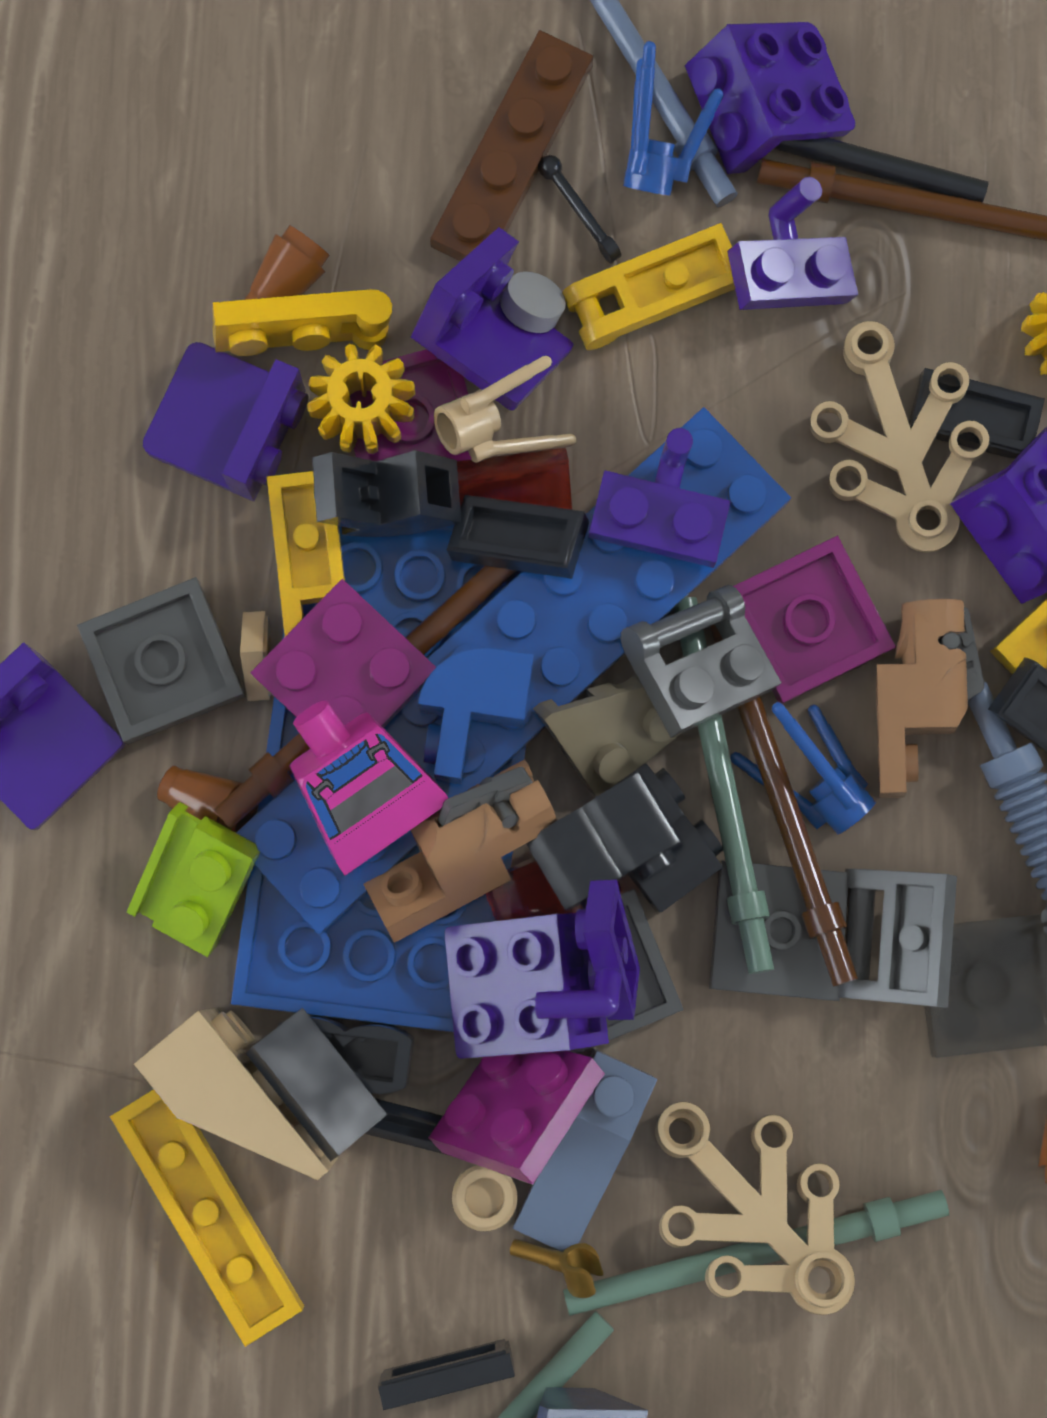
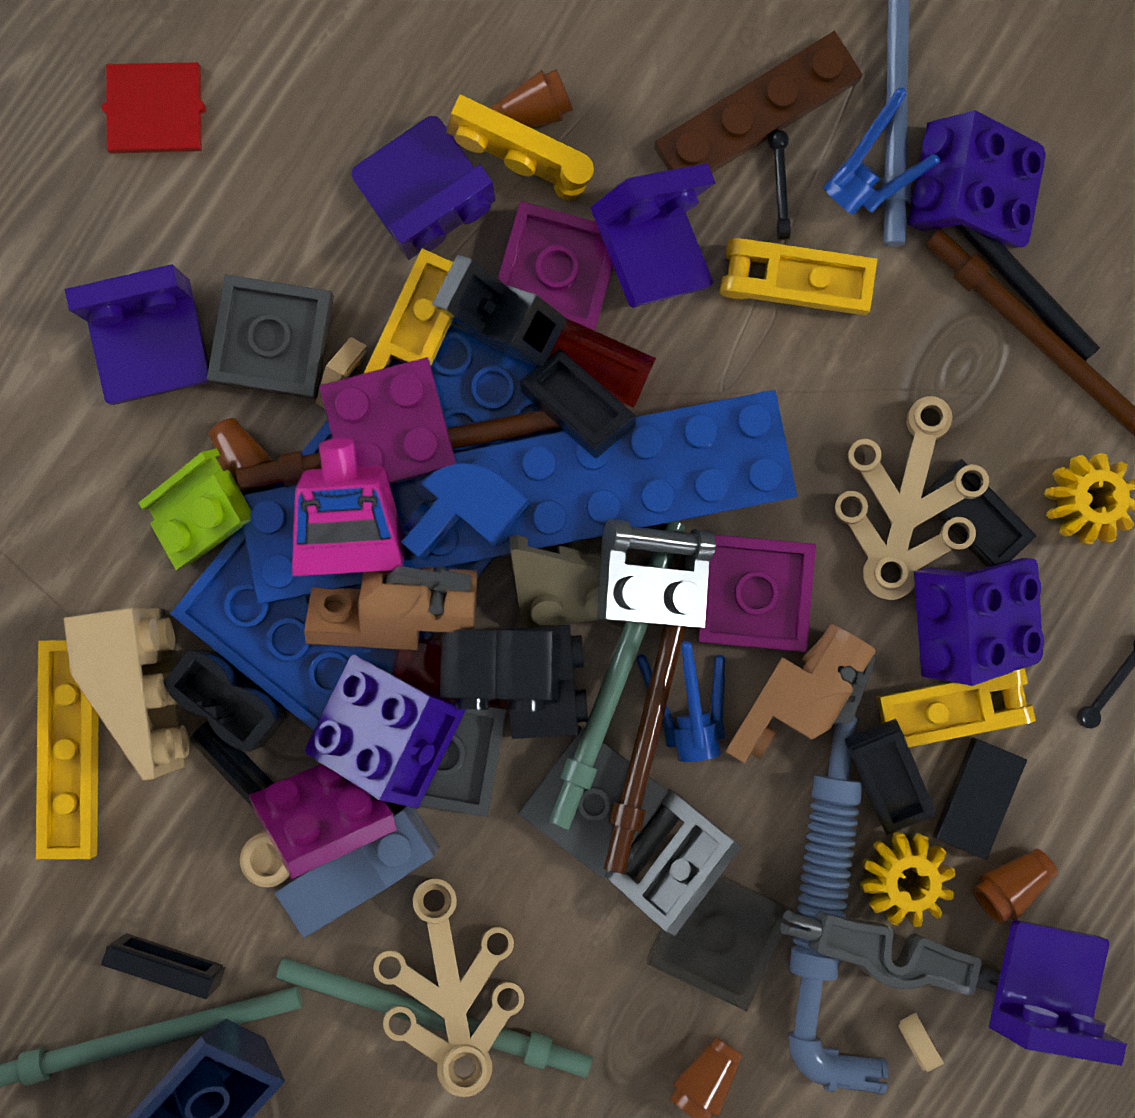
camera: 40 degrees right, 5 degrees up
(316, 1084) = (184, 711): black tile -> none
(358, 374) = (544, 221): yellow gear -> none
(474, 418) = (598, 295): tan plant -> none
(532, 302) = (701, 234): light grey tile -> none
(574, 1262) = (298, 943): pearl gold hand -> none
(611, 963) = (451, 755): dark purple plate -> none
(660, 514) = (691, 450): dark purple plate -> none
(789, 268) = (907, 324): plate -> none

